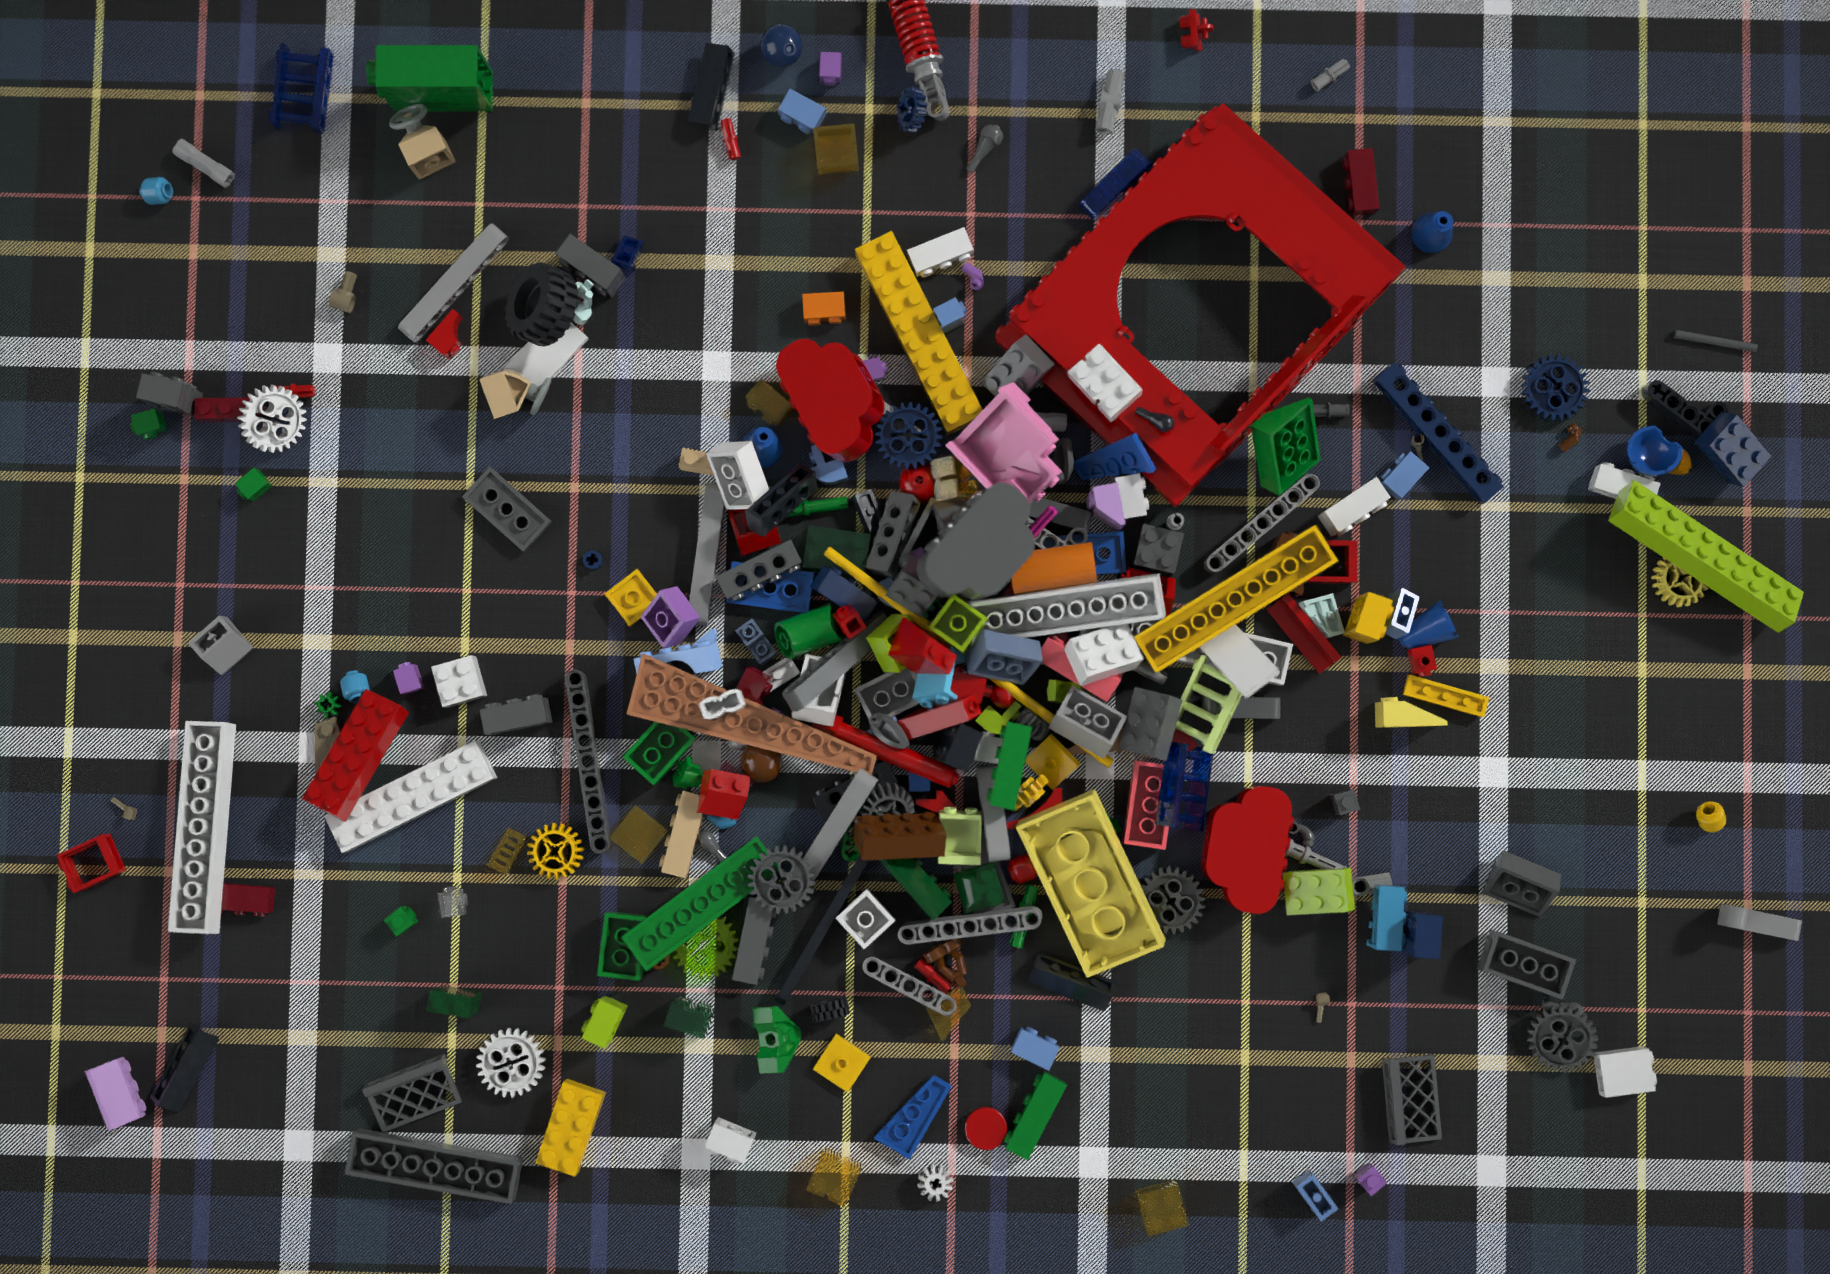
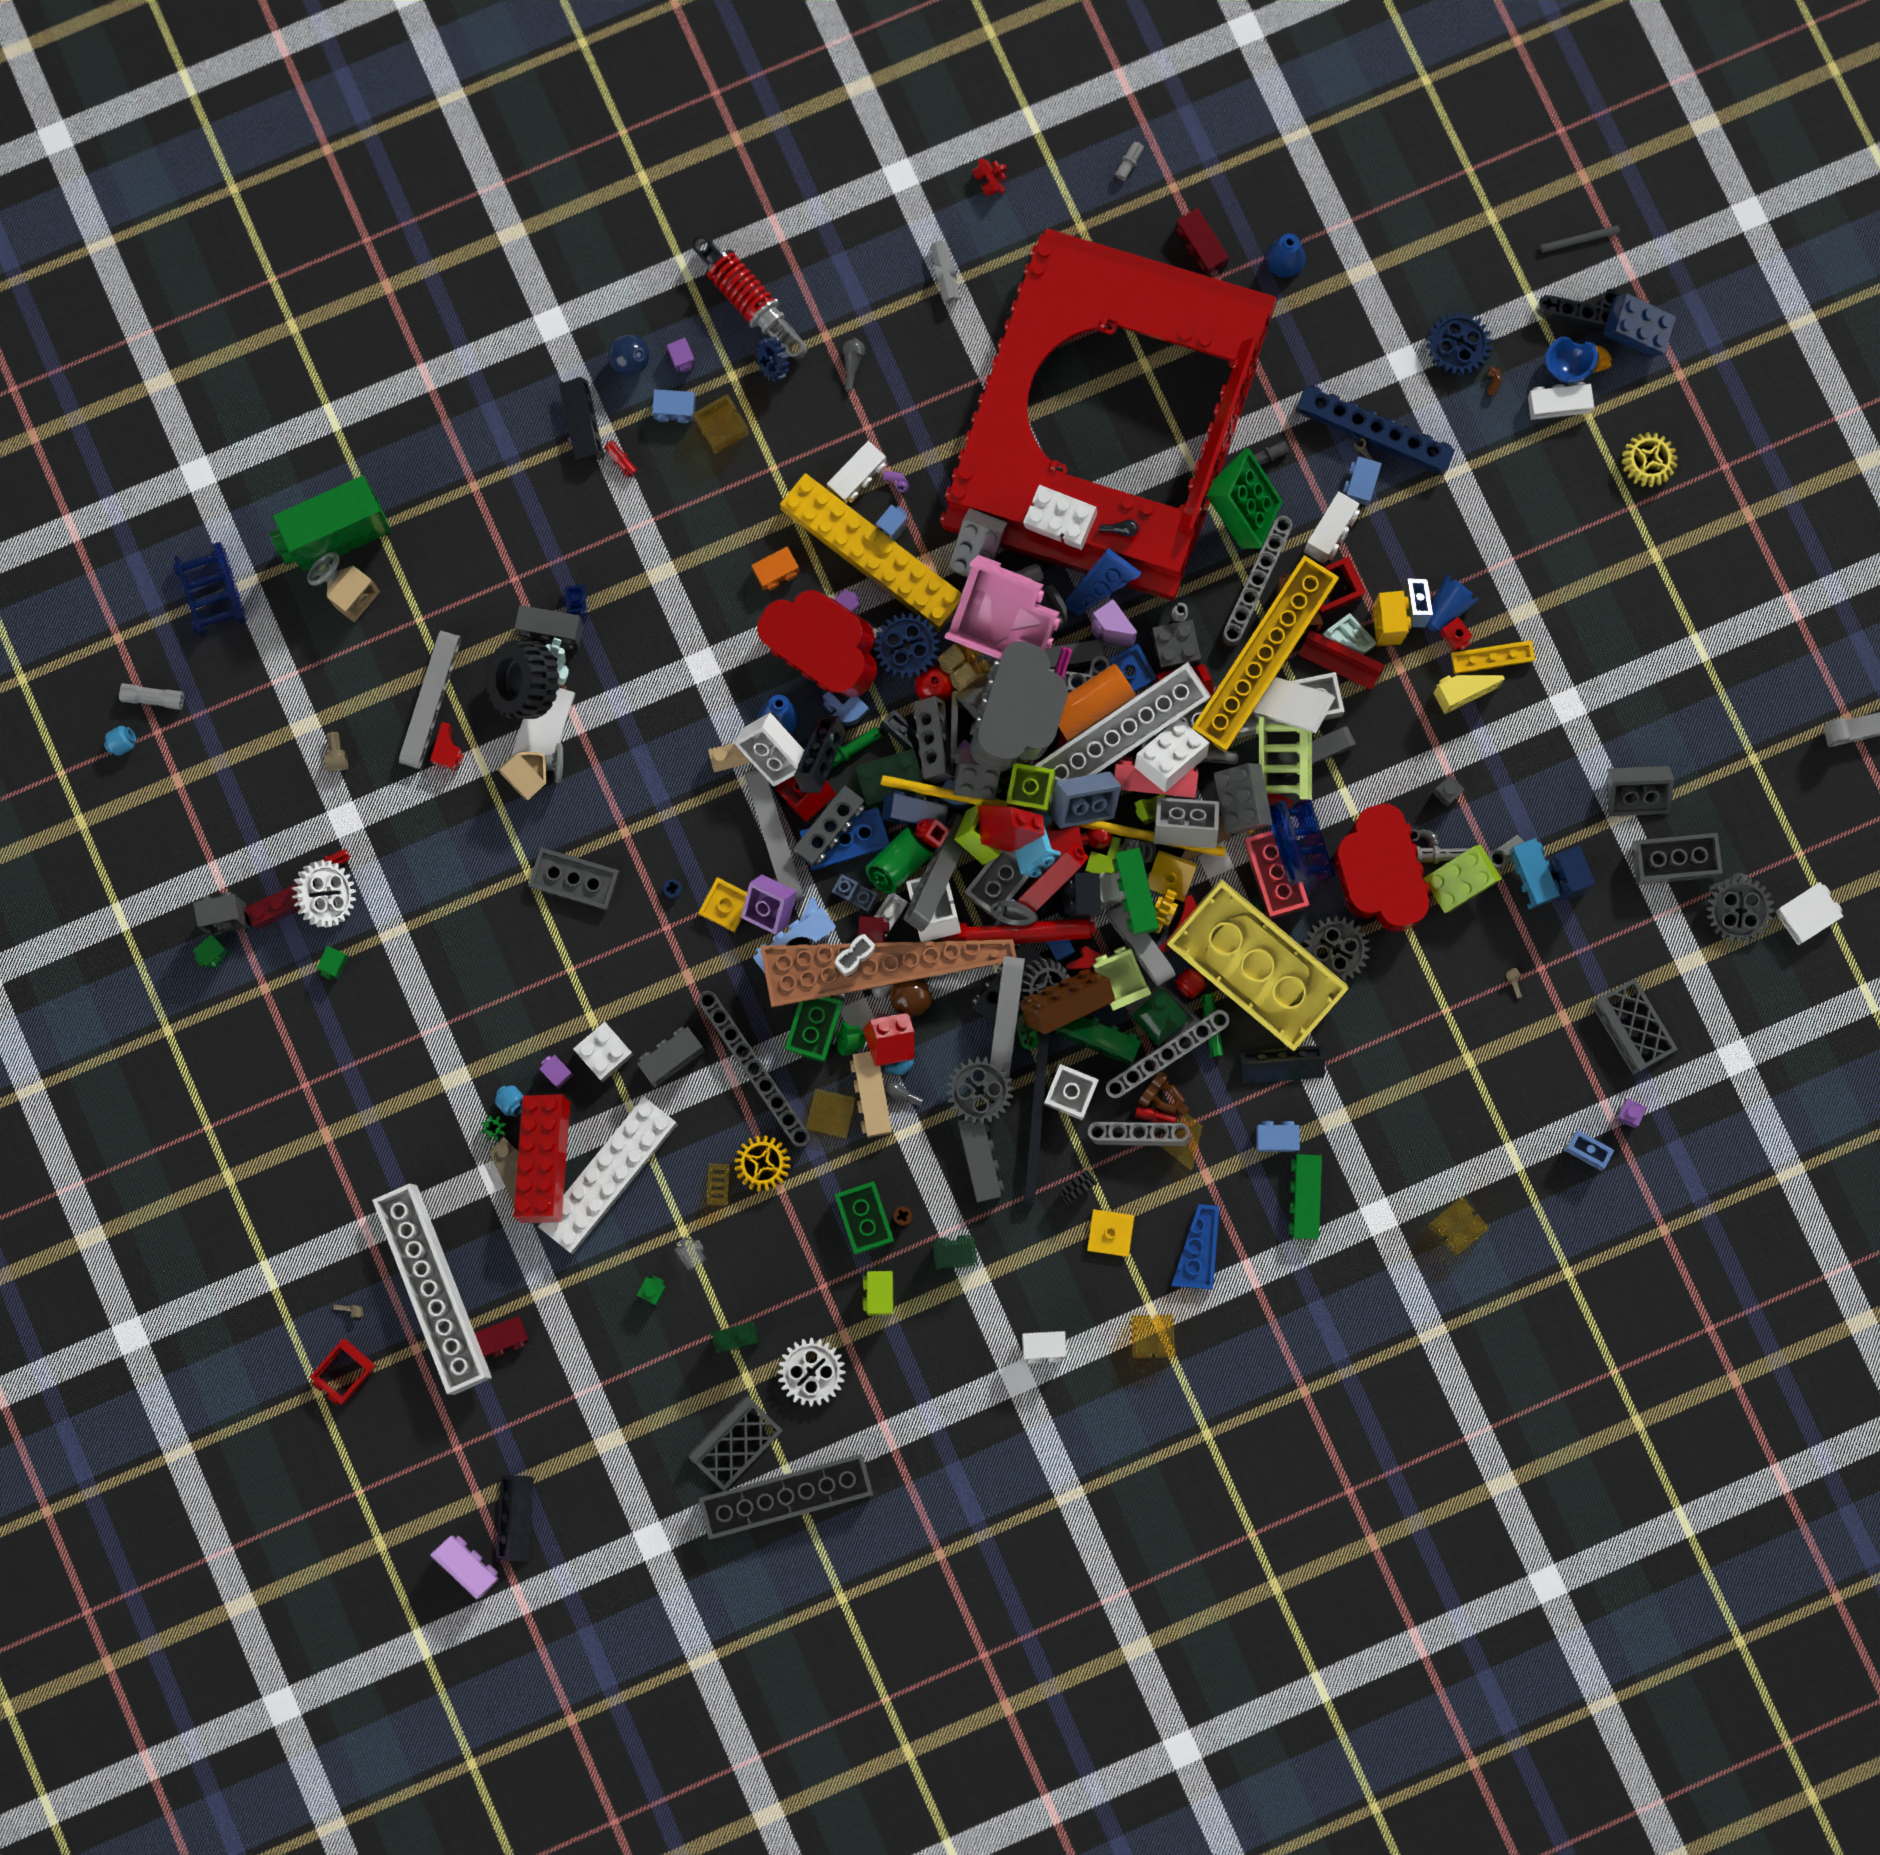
camera: 25 degrees left, 5 degrees down
(221, 644) = (371, 1119): light grey slope -> none
(570, 1127) = (893, 1404): yellow brick -> none
(695, 906) = (914, 1150): green plate -> none
(716, 959) = (954, 1192): clear neon green gear -> none
(768, 402) = (765, 676): clear yellow piece -> none
(787, 1034) = (1051, 1250): green piece -> none
(939, 1188) = (1240, 1294): white gear -> none
(985, 1128) = (1267, 1230): red tile -> none
(1130, 168) = (984, 341): clear blue beam -> none
(1131, 494) = (1132, 607): white brick -> none
(1706, 556) = (1660, 428): lime brick -> none
(1711, 816) = (1776, 654): yellow head -> none

